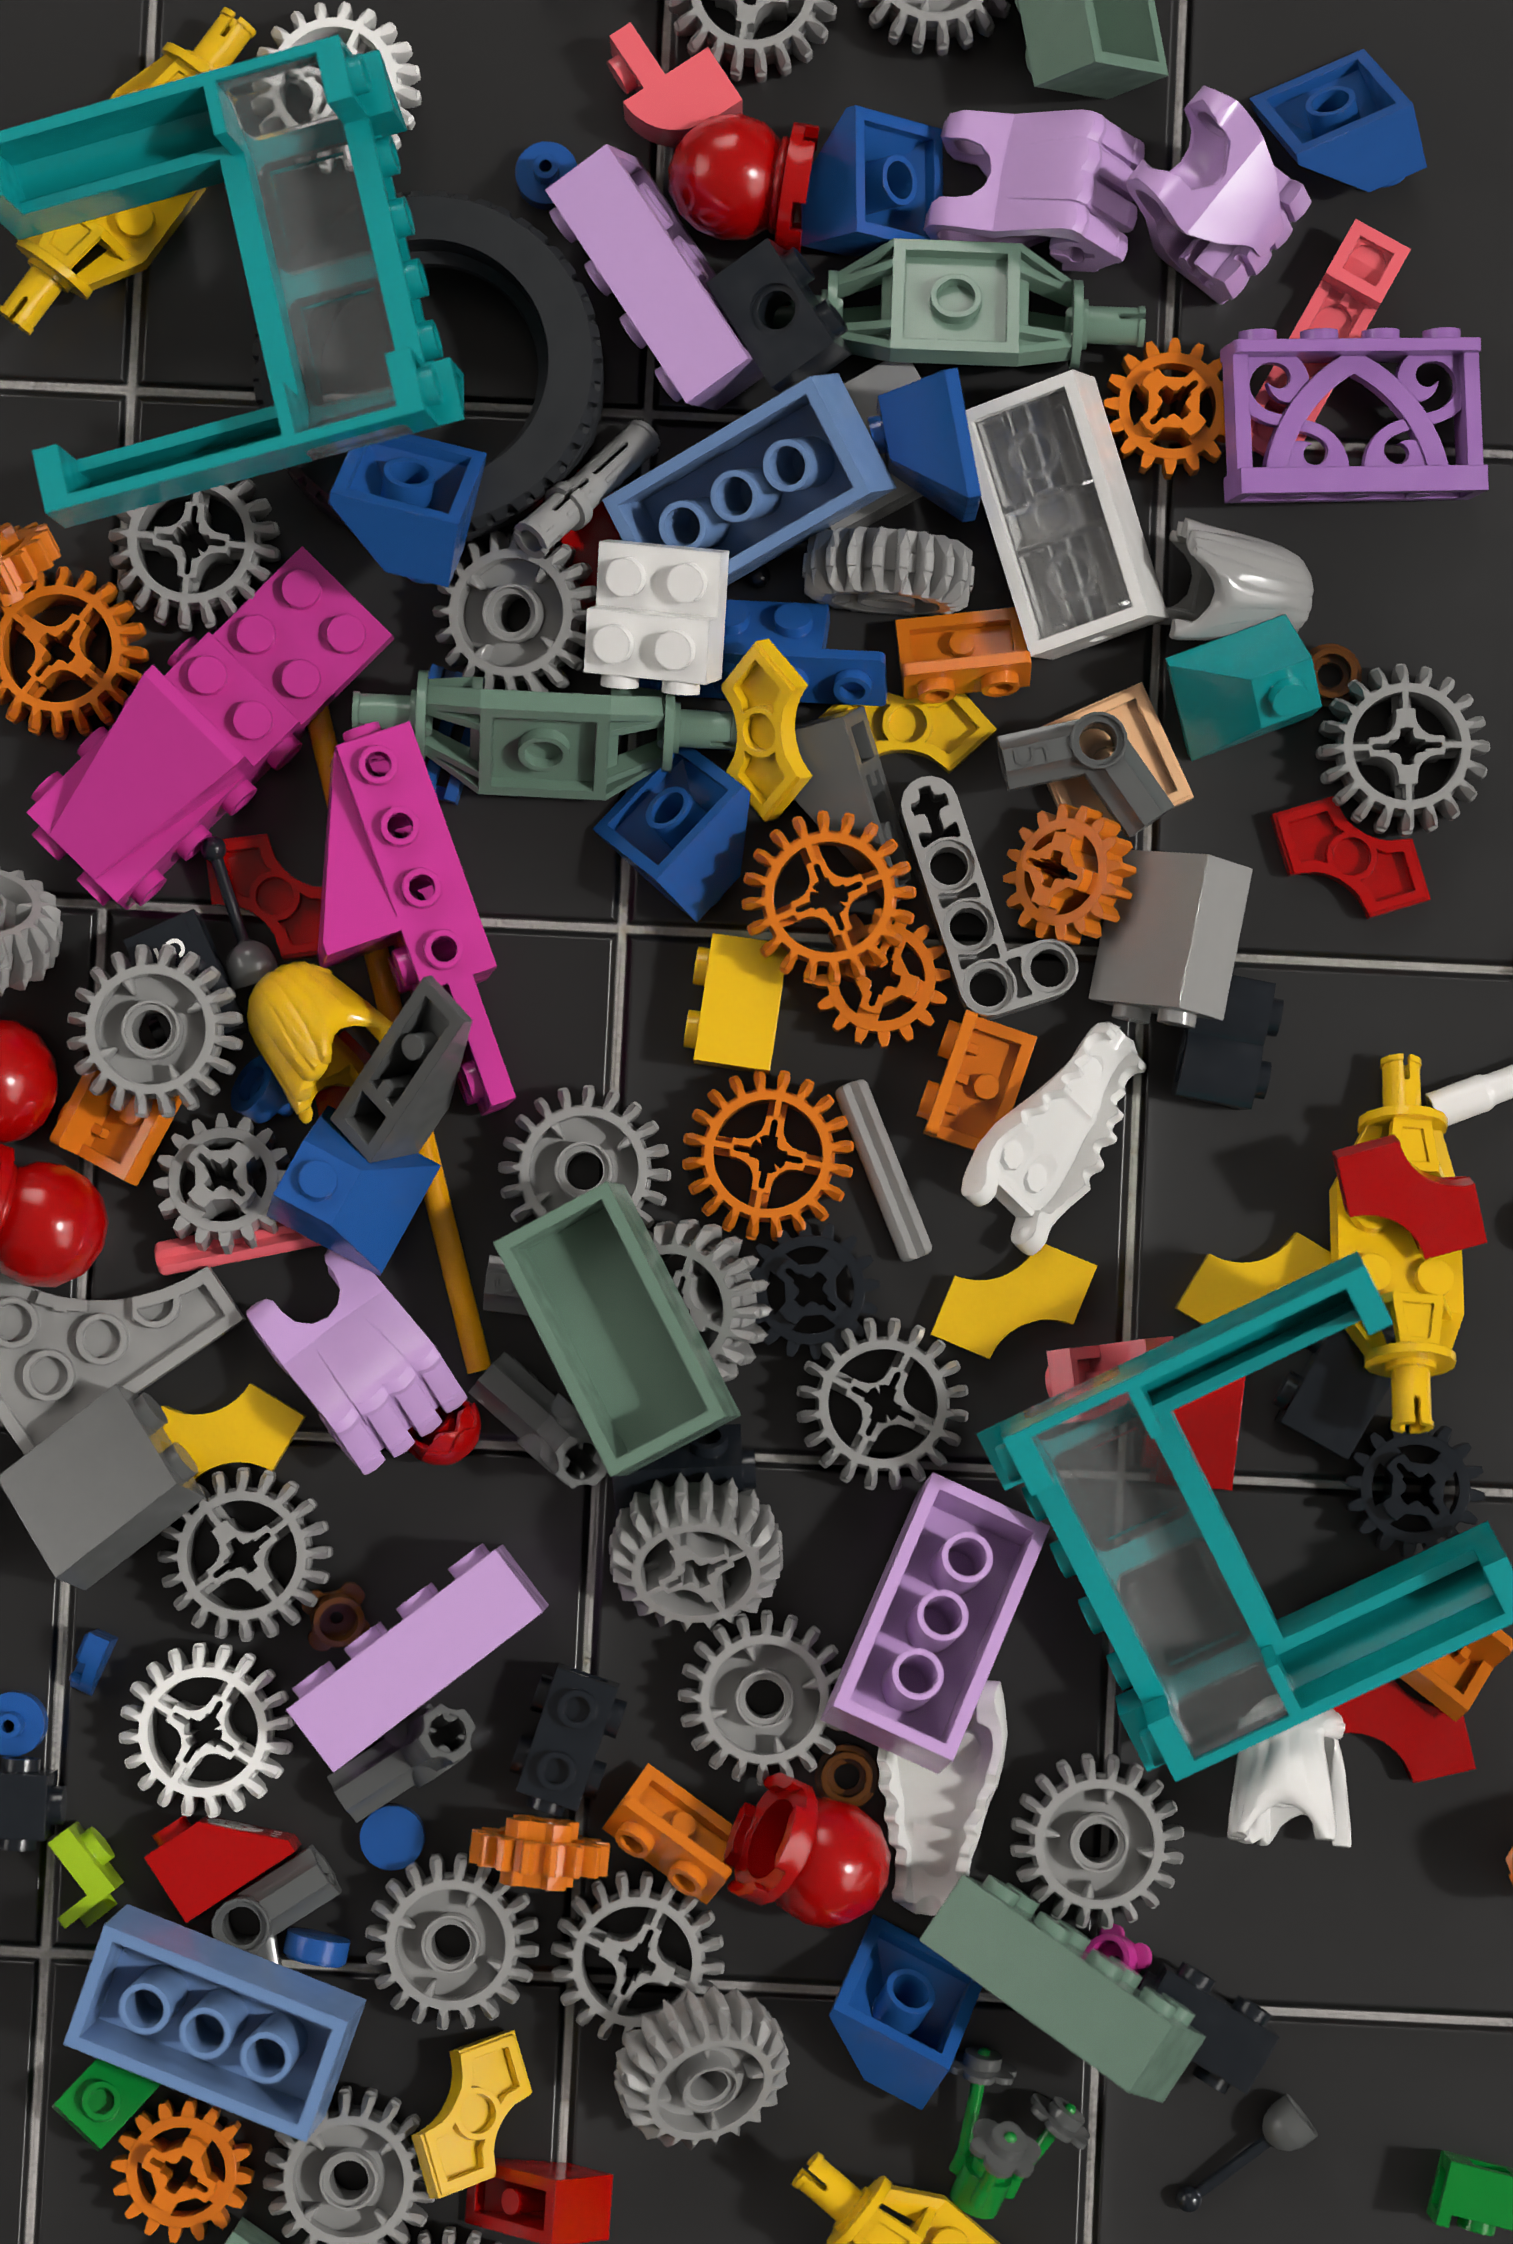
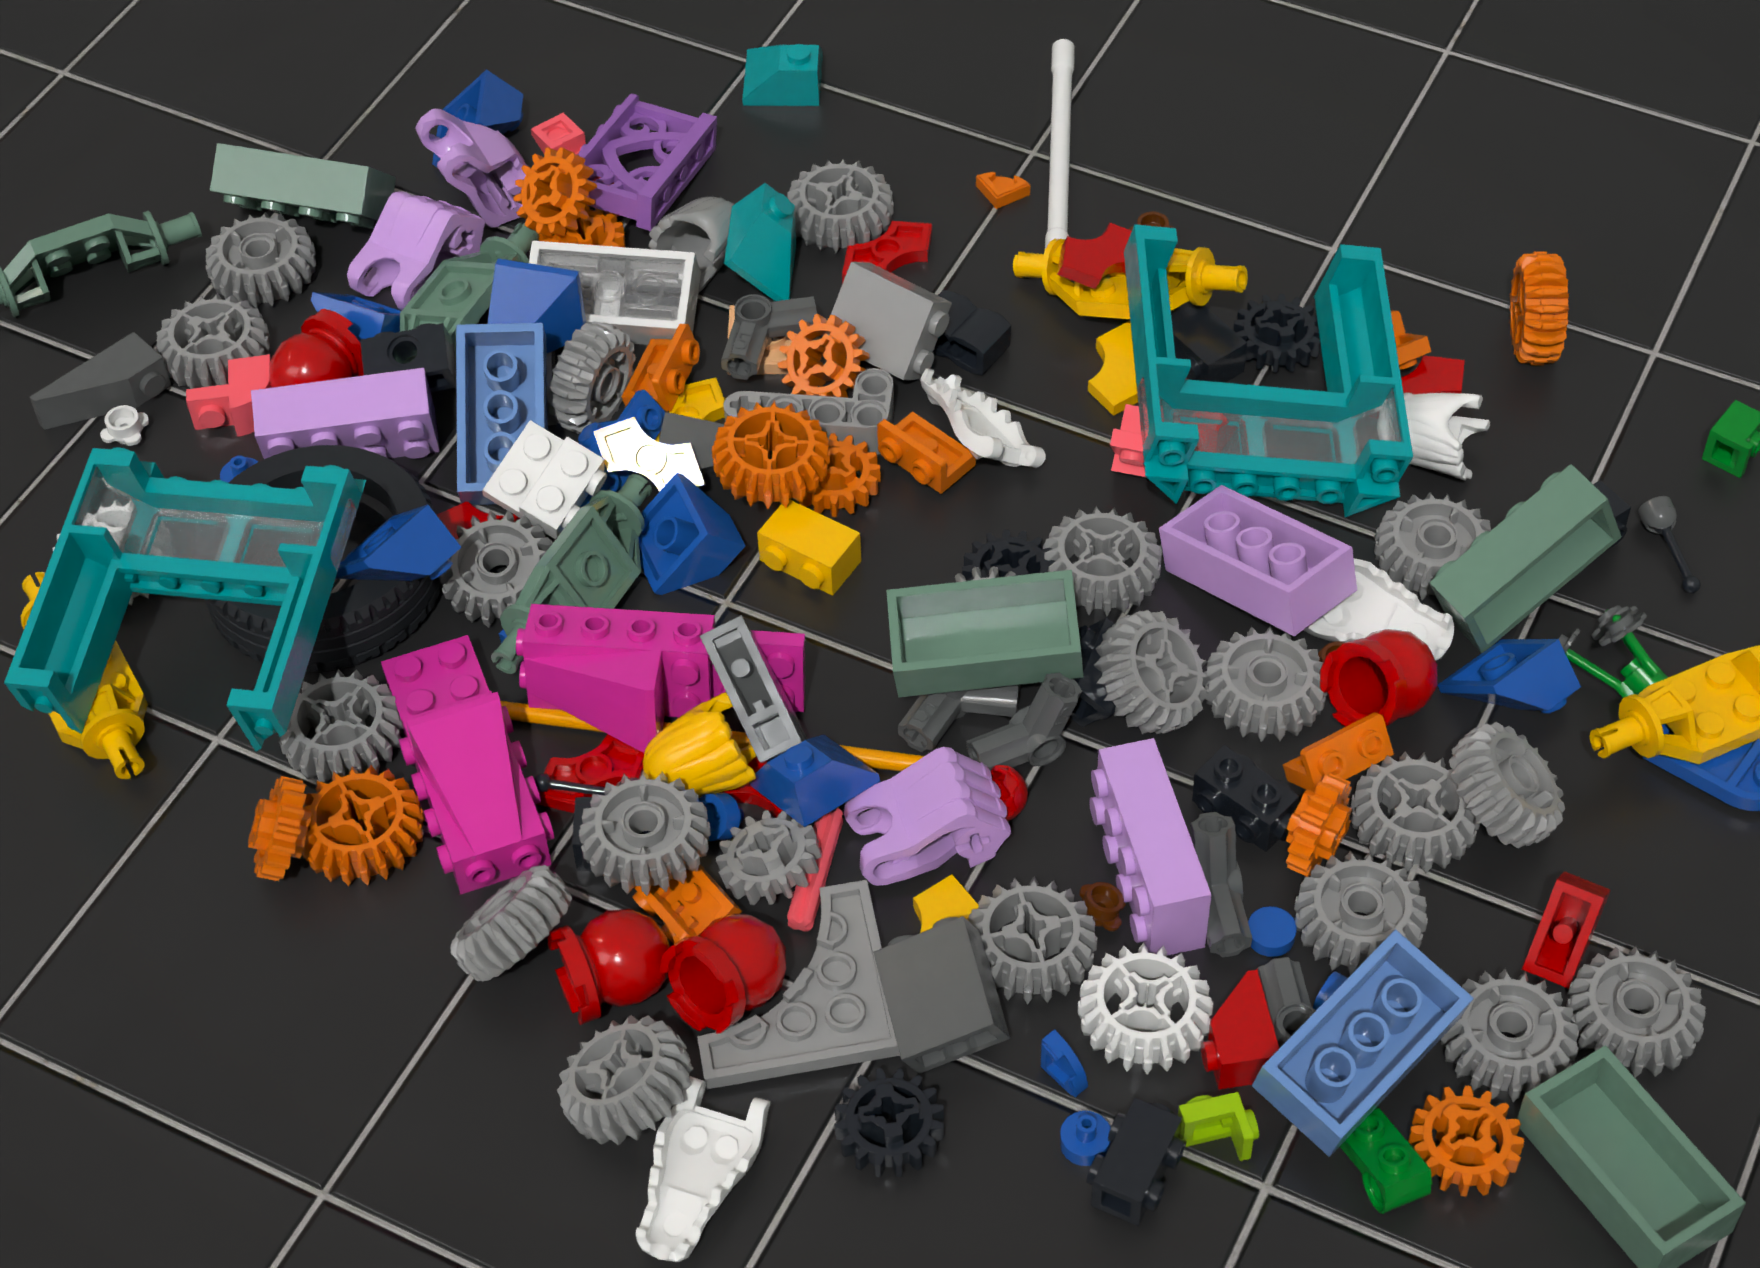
camera: 65 degrees left, 35 degrees down
(461, 2139) = (1499, 945): yellow tile -> none
(571, 502) = (454, 502): light grey pin -> none
(582, 1131) = (855, 663): light grey gear -> none
(779, 1101) = (910, 553): orange gear -> none
(883, 1170) = (953, 518): light grey axle -> none
(985, 1311) = (1068, 470): yellow tile -> none
(1189, 348) = (555, 192): none -> orange gear

